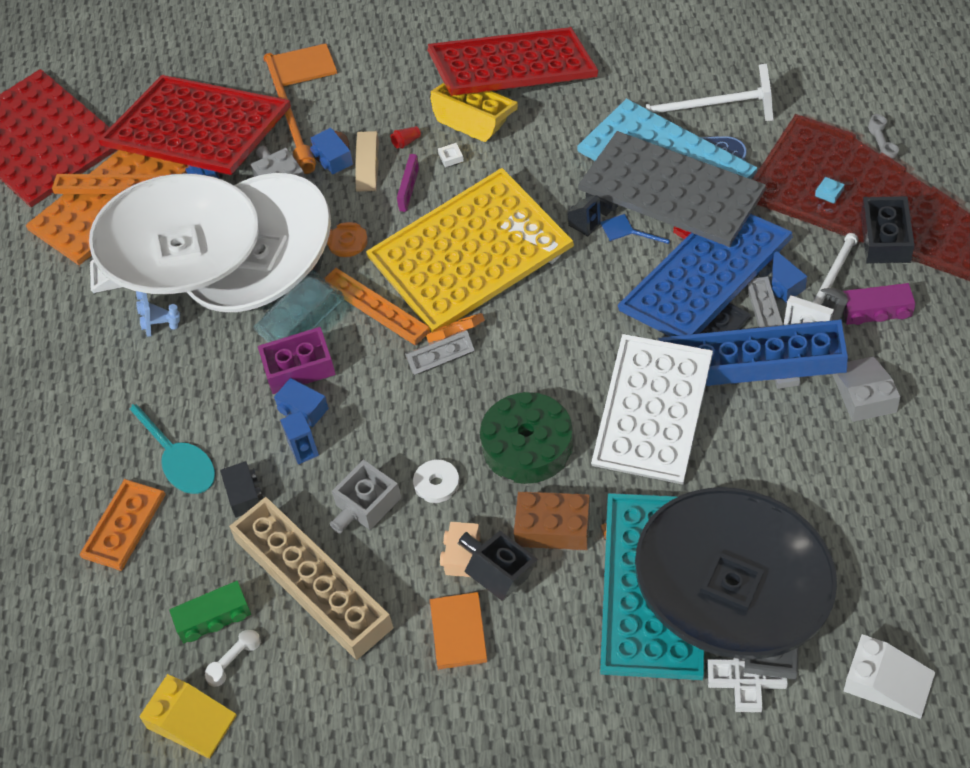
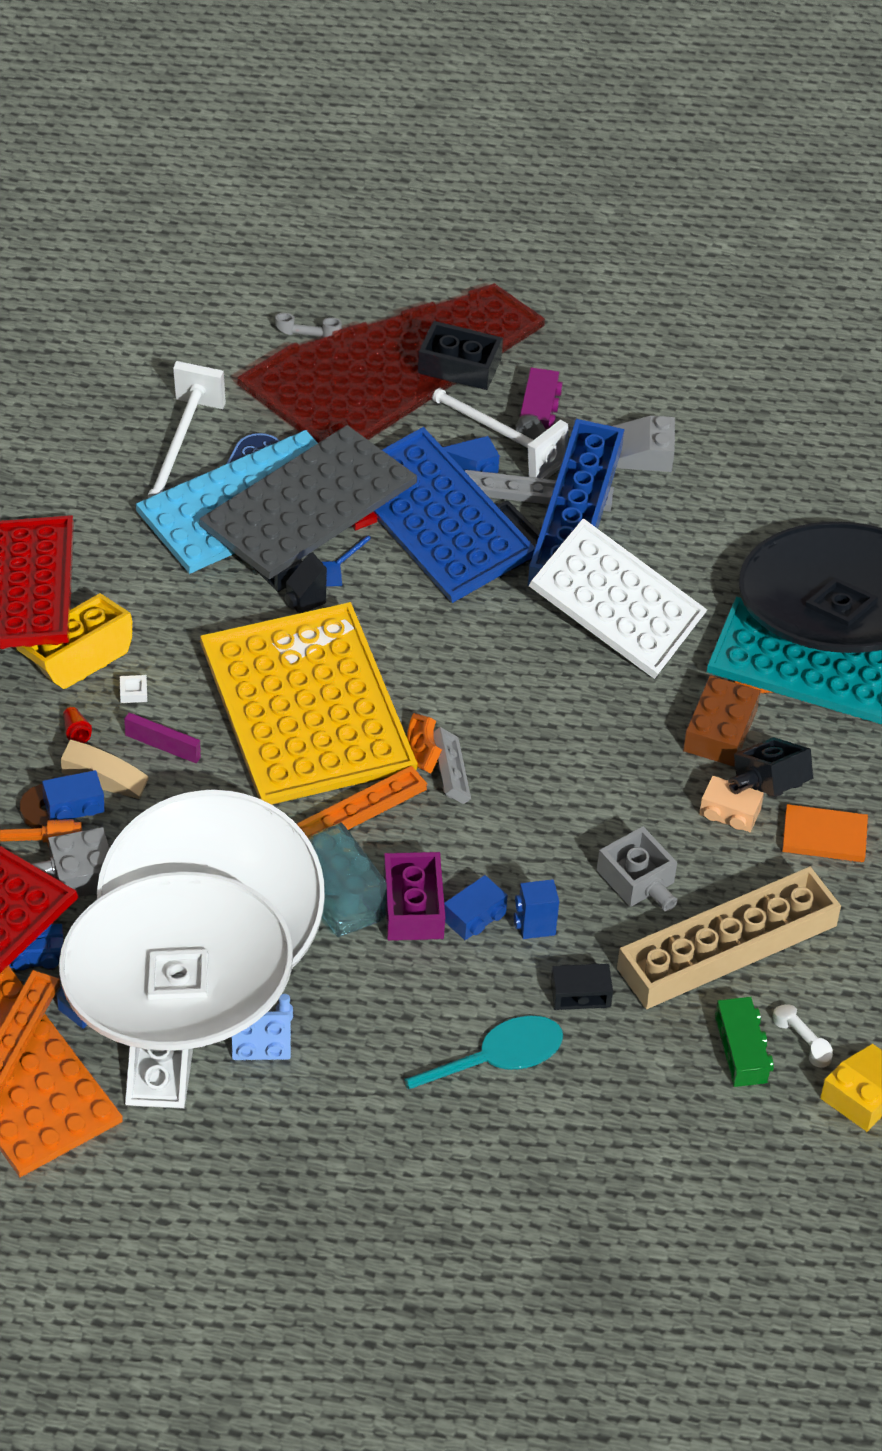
camera: 85 degrees left, 5 degrees down
(122, 524) = (584, 1118): orange tile -> none
(436, 469) = (633, 799): white tile -> none
(526, 437) = (606, 715): dark green brick -> none
(829, 190) = (371, 384): medium azure plate -> none

